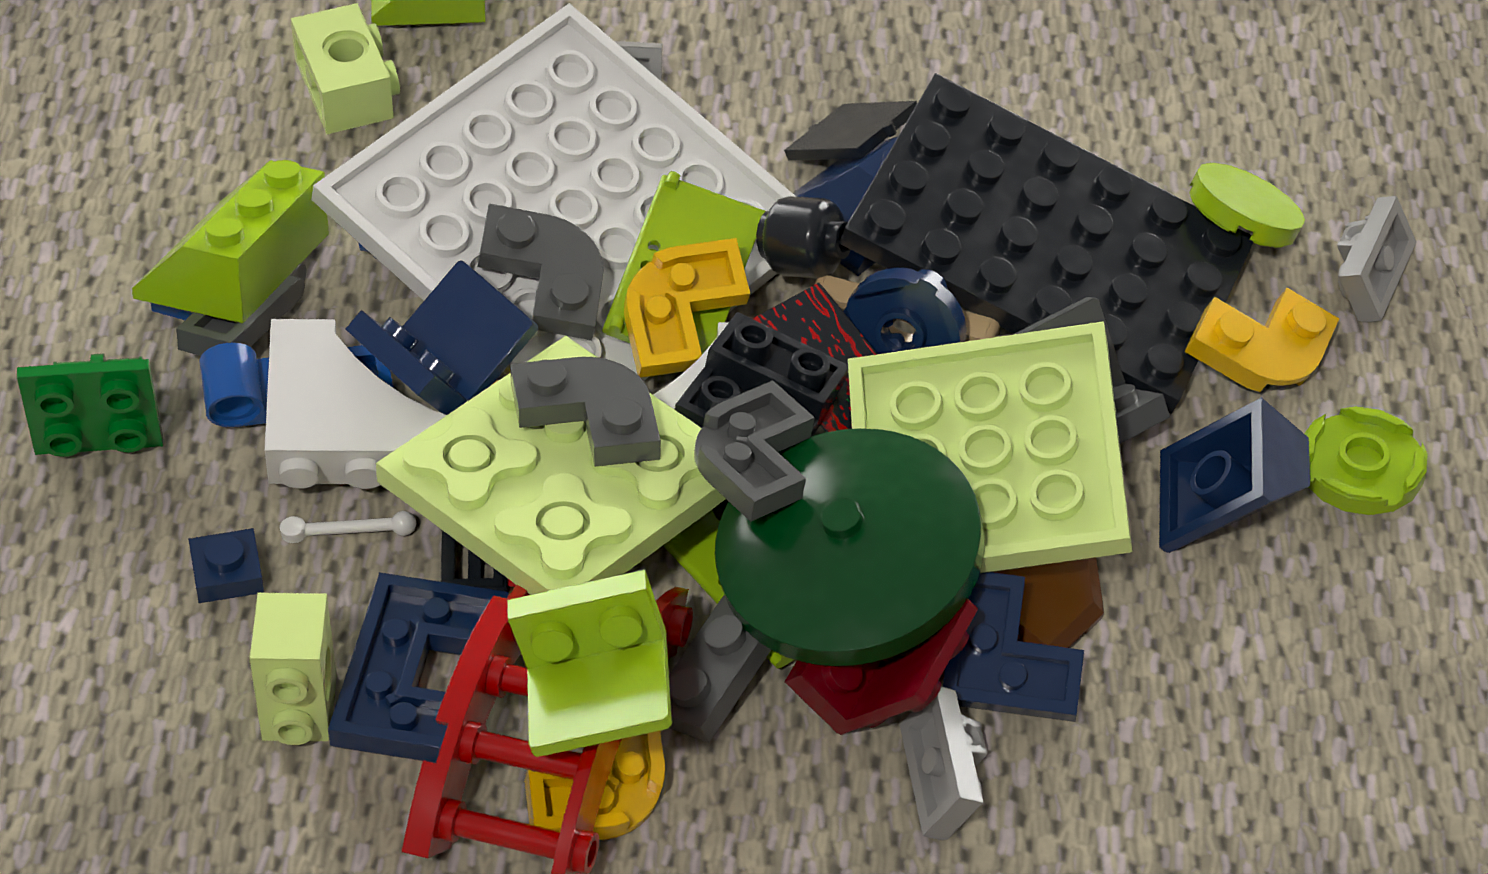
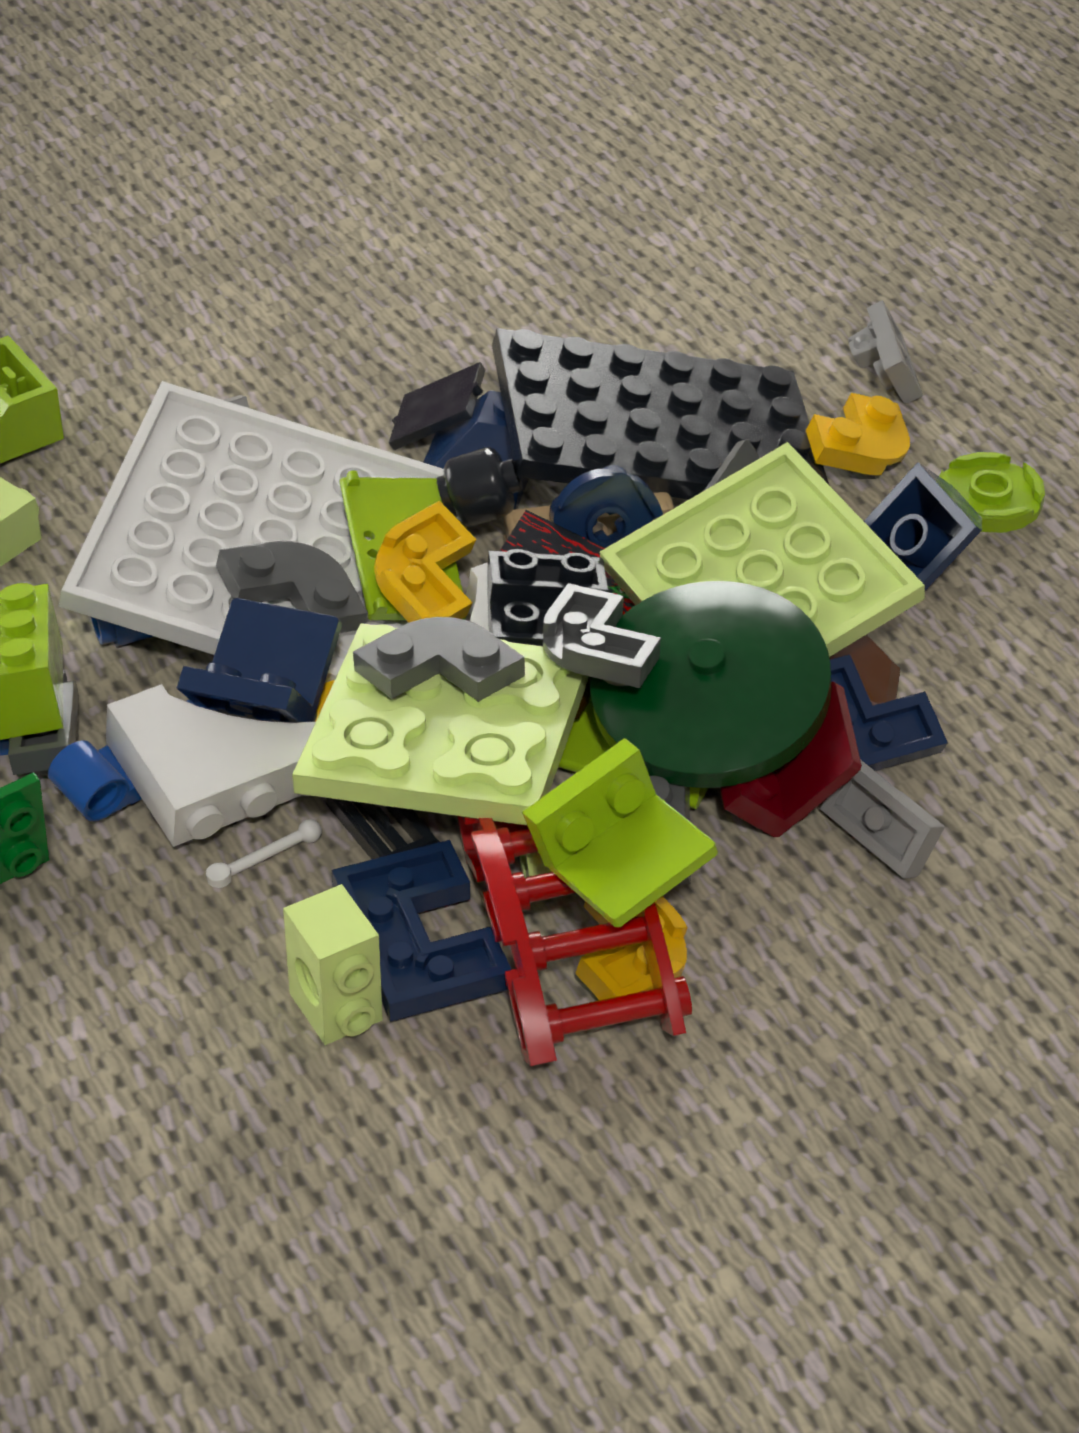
camera: 30 degrees left, 5 degrees down
(226, 565) = (186, 925): dark blue plate -> none
(1245, 200) = (772, 349): lime tile -> none

